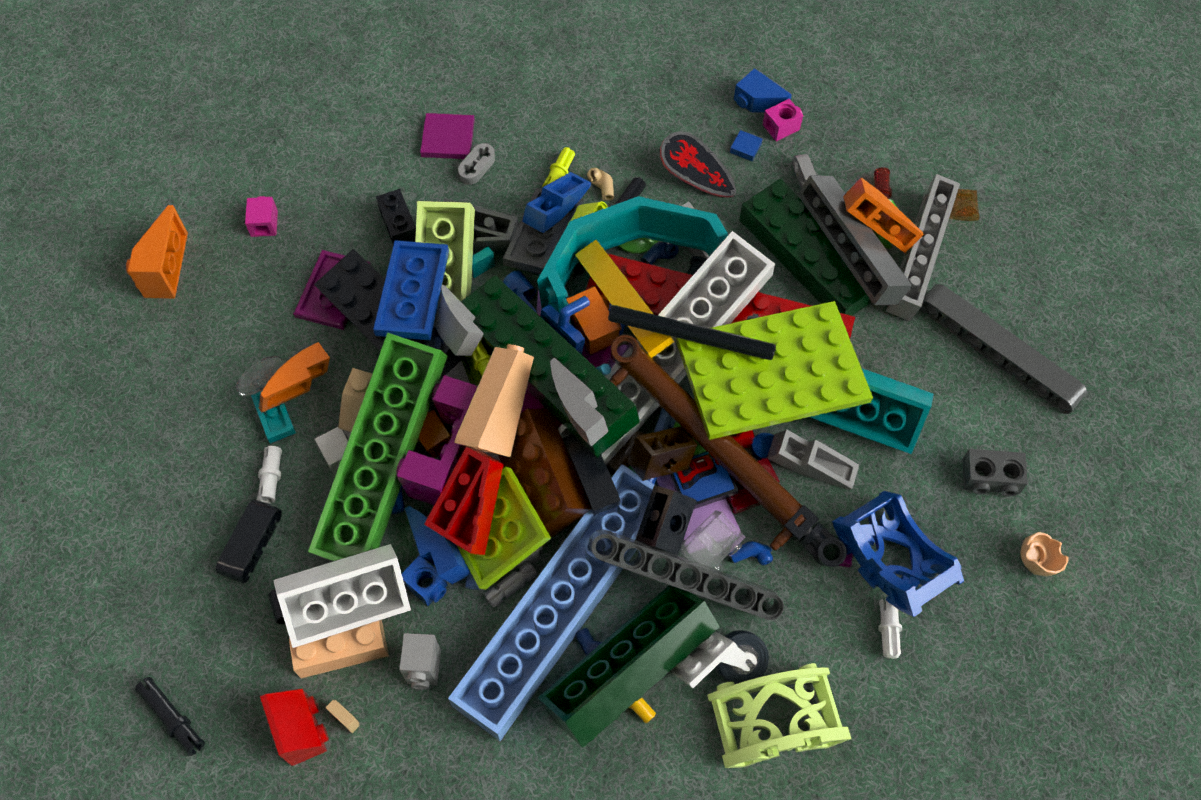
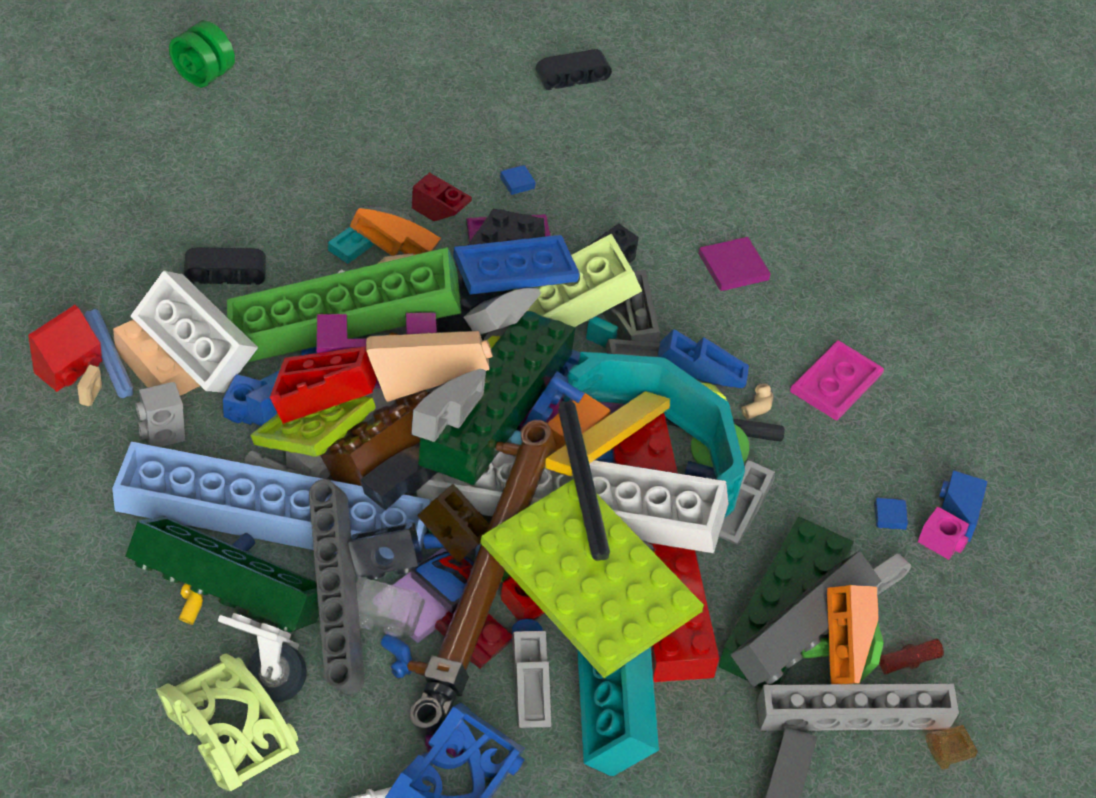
camera: 60 degrees right, 15 degrees down
(158, 156) = (573, 69): none -> black beam
(159, 256) = (467, 102): orange slope -> none
(177, 725) = (38, 280): black pin -> none
(261, 216) = (553, 158): dark pink brick -> none
(266, 325) = (437, 198): none -> dark red slope
(267, 255) = (517, 179): none -> blue tile
(269, 474) = (295, 258): white pin -> none
(310, 685) = (110, 355): none -> medium blue axle
(474, 162) = (716, 295): light grey beam -> none
(561, 166) = (759, 361): neon yellow axle -> none
(602, 121) = (837, 380): none -> dark pink tile
(696, 164) = (829, 469): shield -> none

